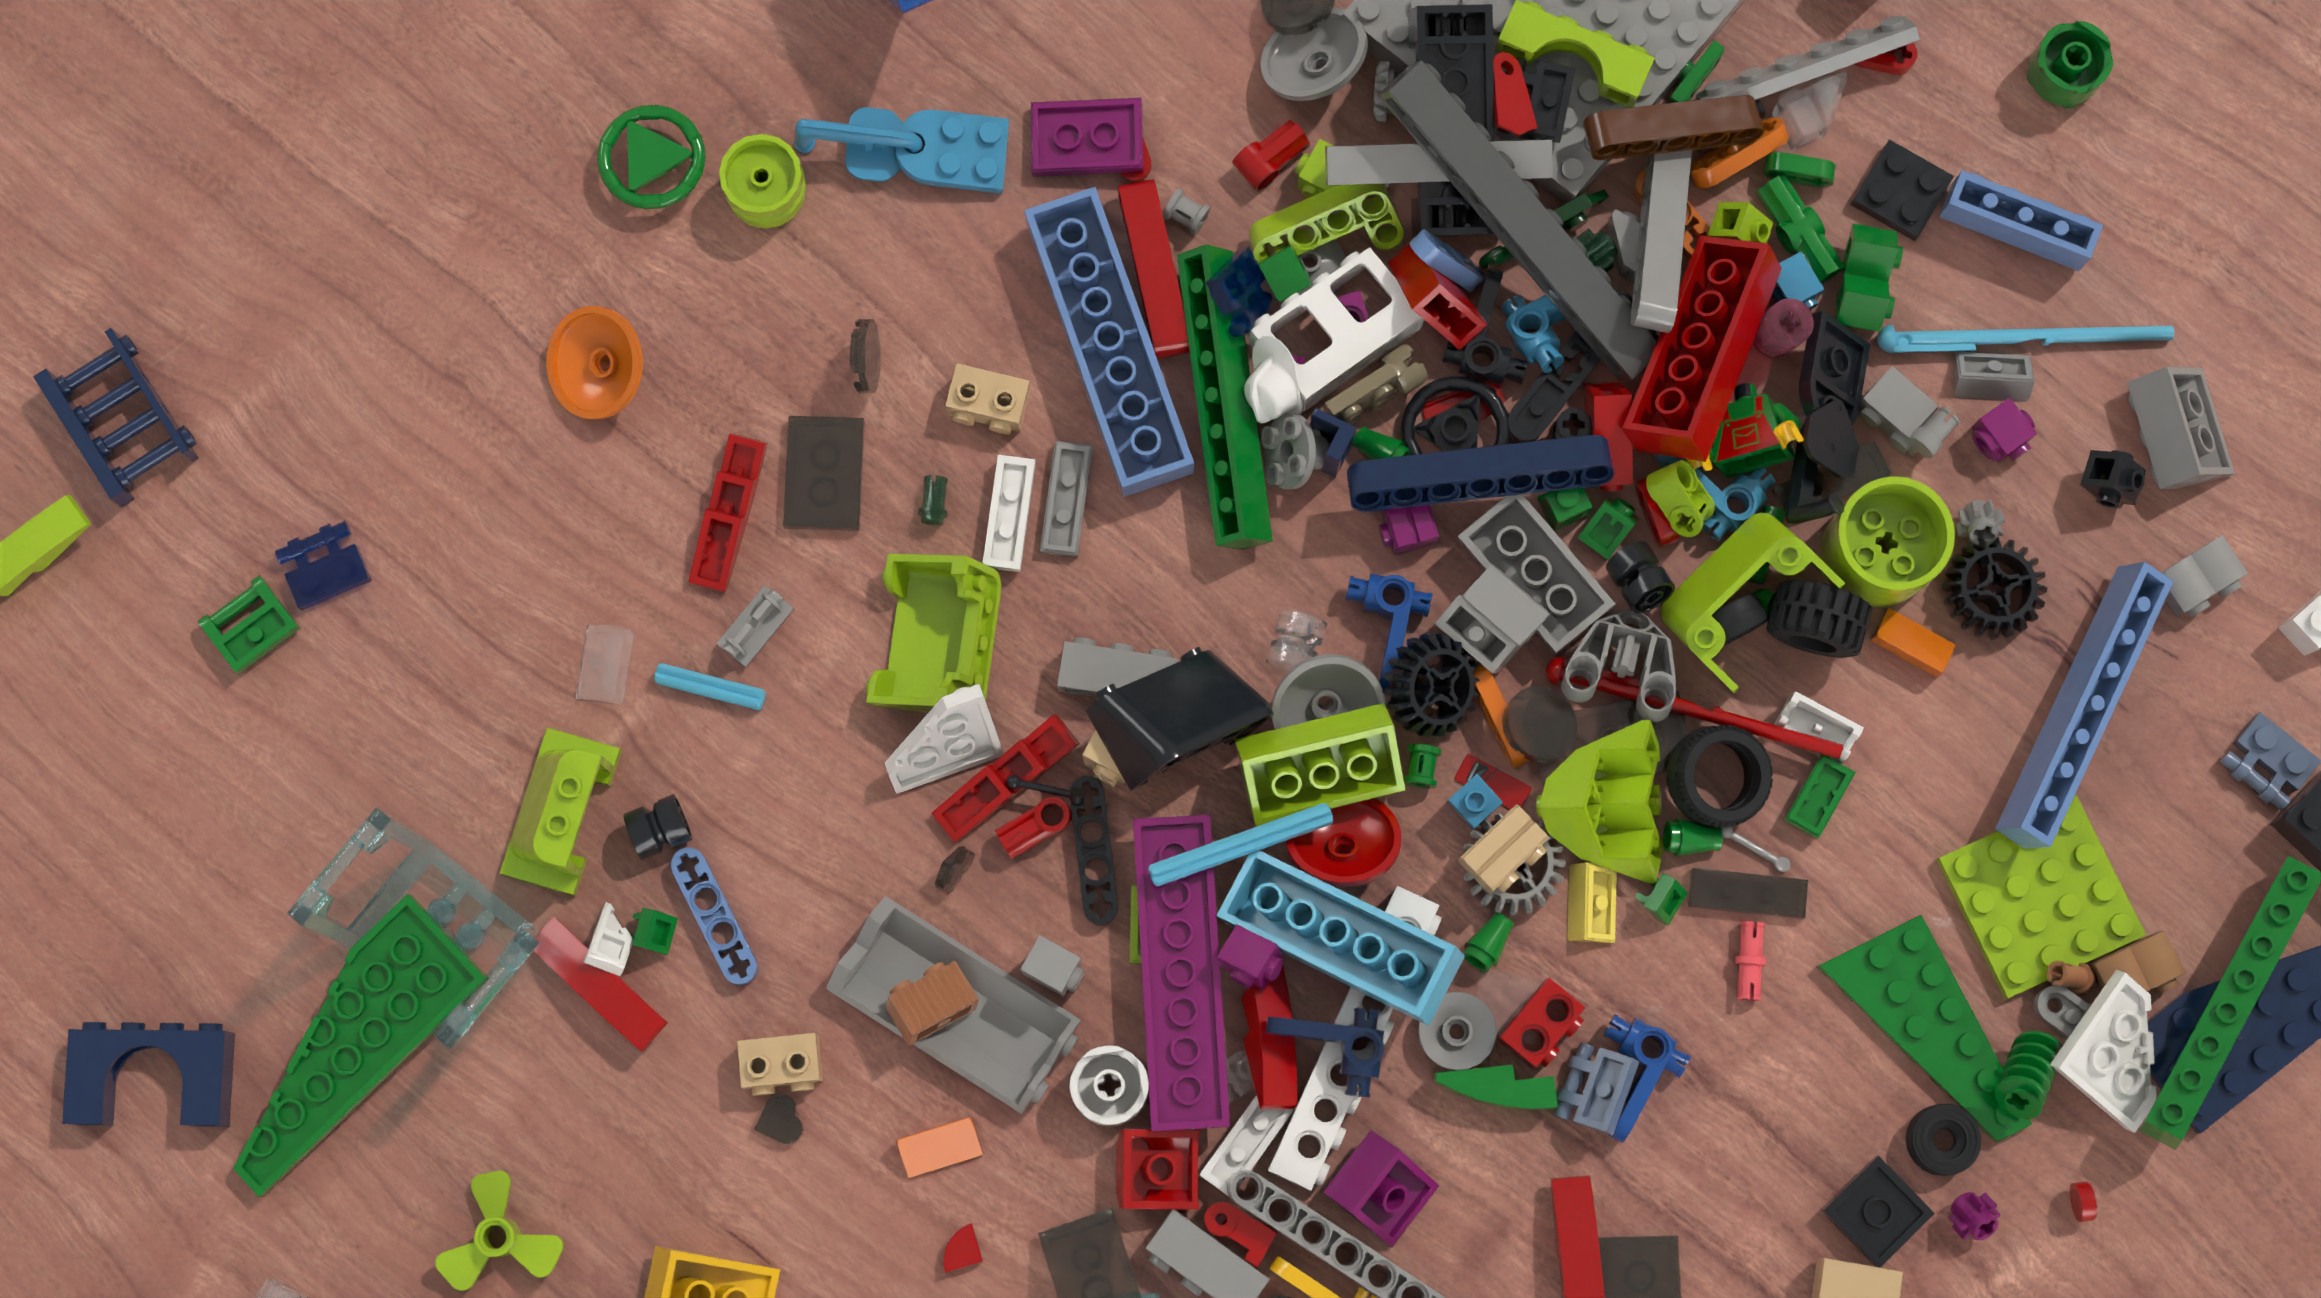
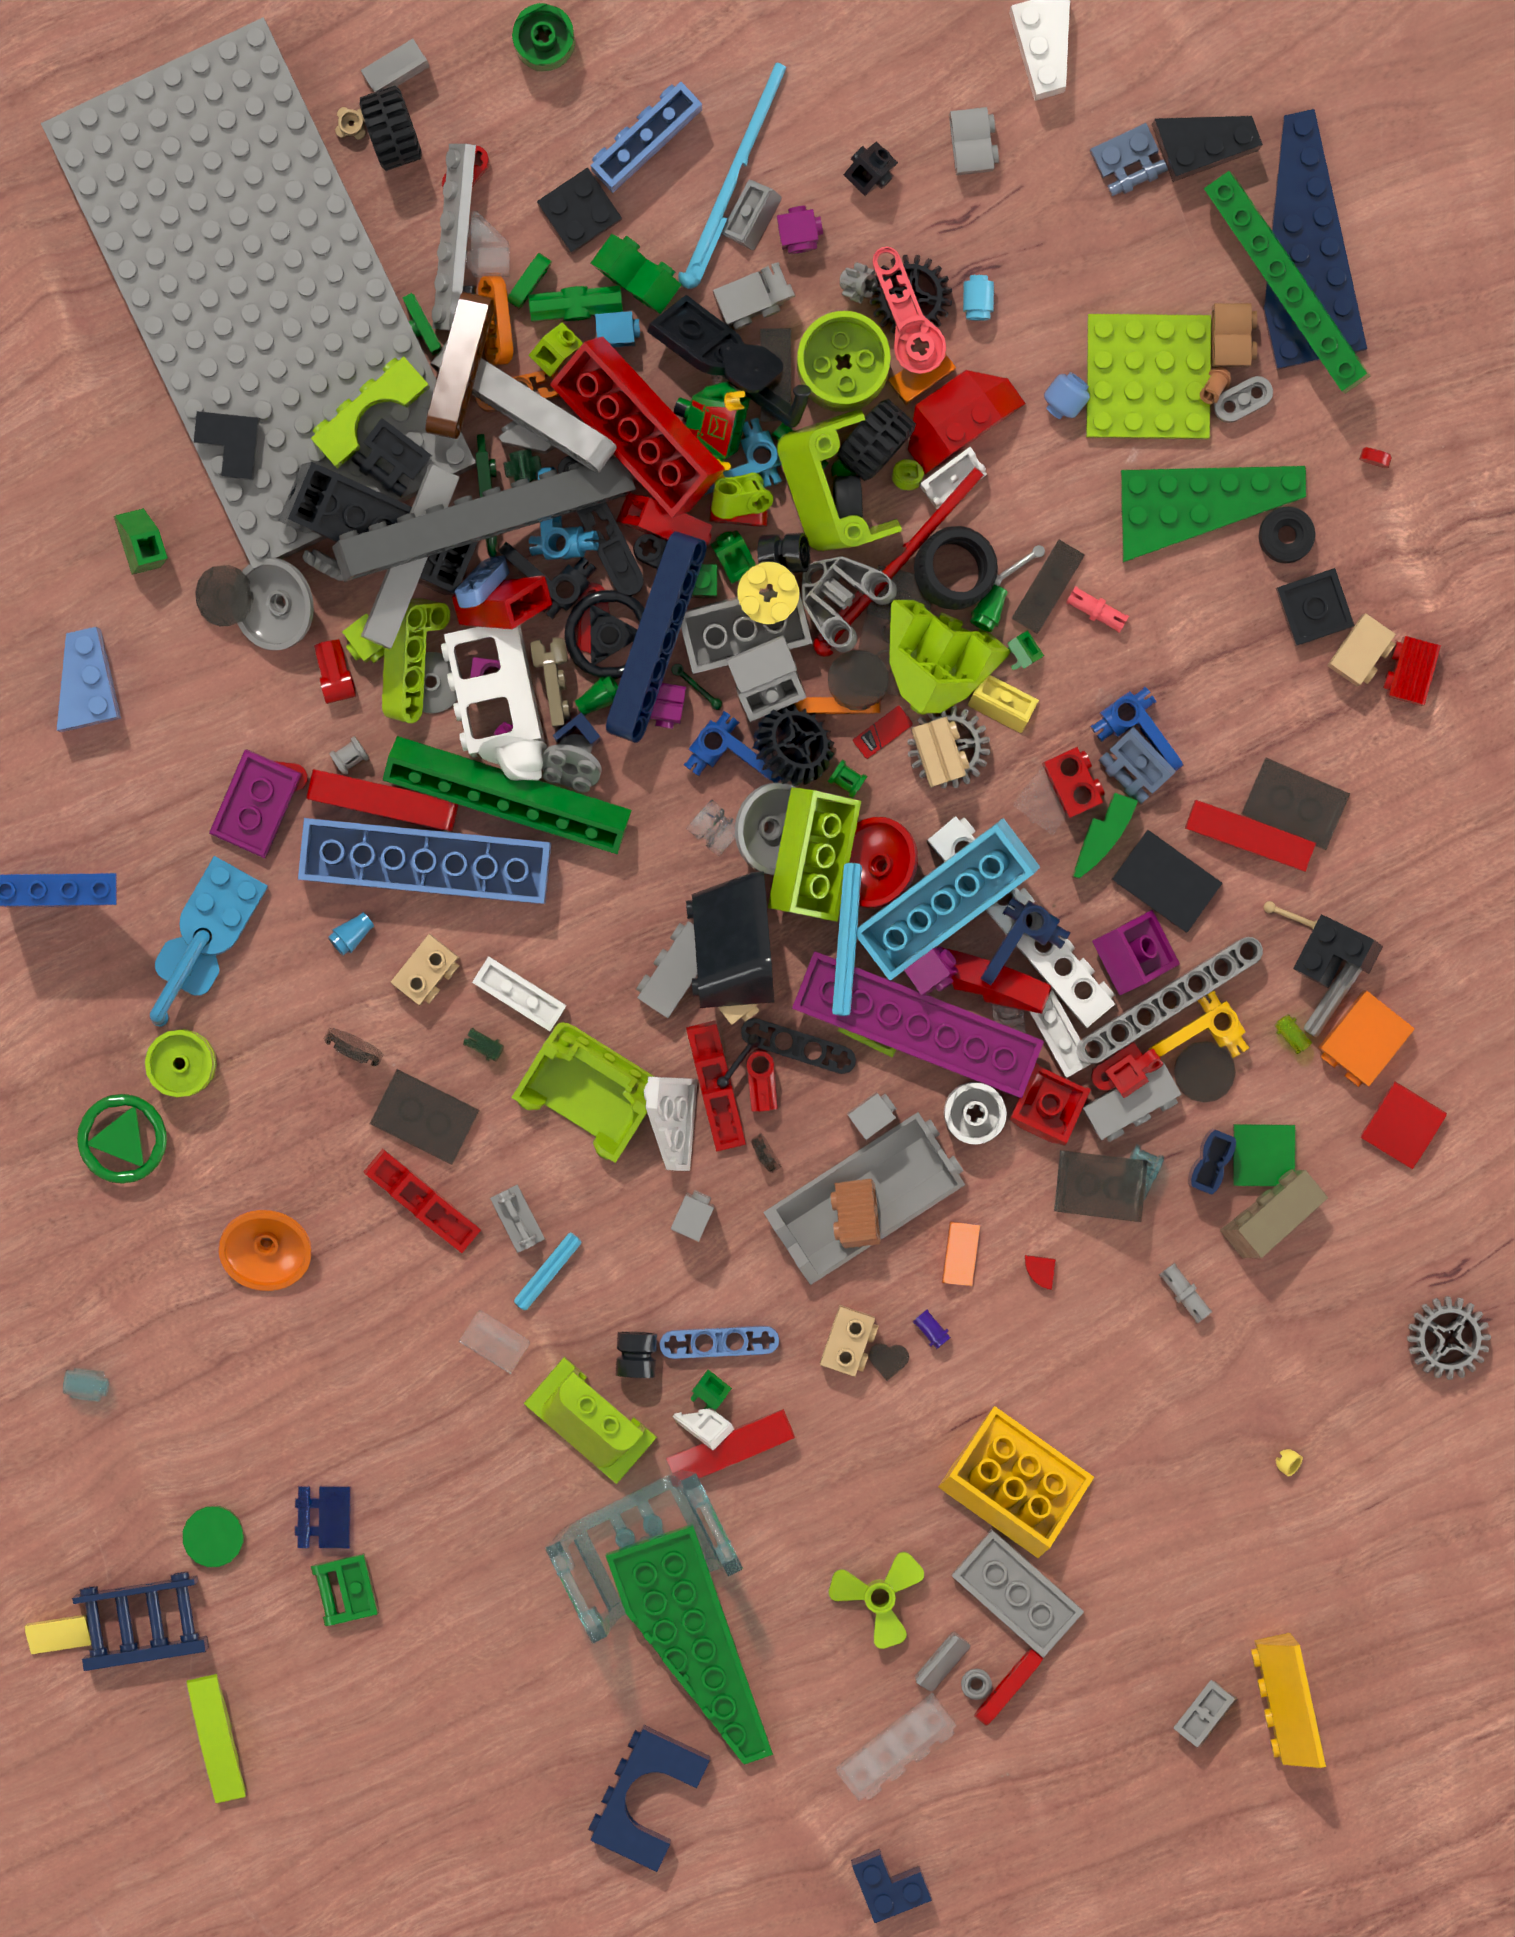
camera: 70 degrees left, 10 degrees up
(66, 333) = (58, 1634): none -> light yellow slope
(249, 454) = (213, 1536): none -> green tile
(360, 240) = (85, 1384): none -> clear light blue brick
(836, 1154) = (931, 1329): none -> dark purple pin
(845, 816) = (693, 1215): none -> light grey brick
(991, 301) = (350, 934): none -> dark azure cone
(1066, 499) = (527, 946): light grey tile -> none
(1235, 283) = (432, 747): plate -> none
(1238, 1245) = (1130, 1074): none -> red plate
(1285, 273) = (434, 705): green slope -> none
(1452, 525) = (678, 670): none -> dark green hinge
(1474, 802) = (892, 754): dark azure brick -> none
(1477, 1037) = (1066, 843): light grey dish -> none
(1480, 1187) = (1167, 881): none -> black tile
(1487, 945) = (997, 792): green cone -> none
(1511, 97) = (384, 477): red piece -> none
(1601, 555) = (783, 583): none -> light yellow plate
(1783, 328) = (658, 360): clear pink piece -> none
(1795, 675) = (907, 474): none -> lime tile
(1819, 796) = (1002, 500): green plate -> none
(1891, 704) = (959, 415): none -> red wedge
(1971, 593) = (909, 320): none -> coral beam
(1972, 813) = (1066, 395): none -> medium blue head
(1974, 1216) = (1350, 540): magenta gear -> none
(2027, 1074) = (1270, 453): green piece -> none
(2031, 664) = (978, 298): none -> medium azure brick
(2084, 706) = (1027, 278): medium blue brick -> none
(2113, 1052) = (1282, 384): white plate -> none
(2179, 427) = (855, 97): light grey slope -> none

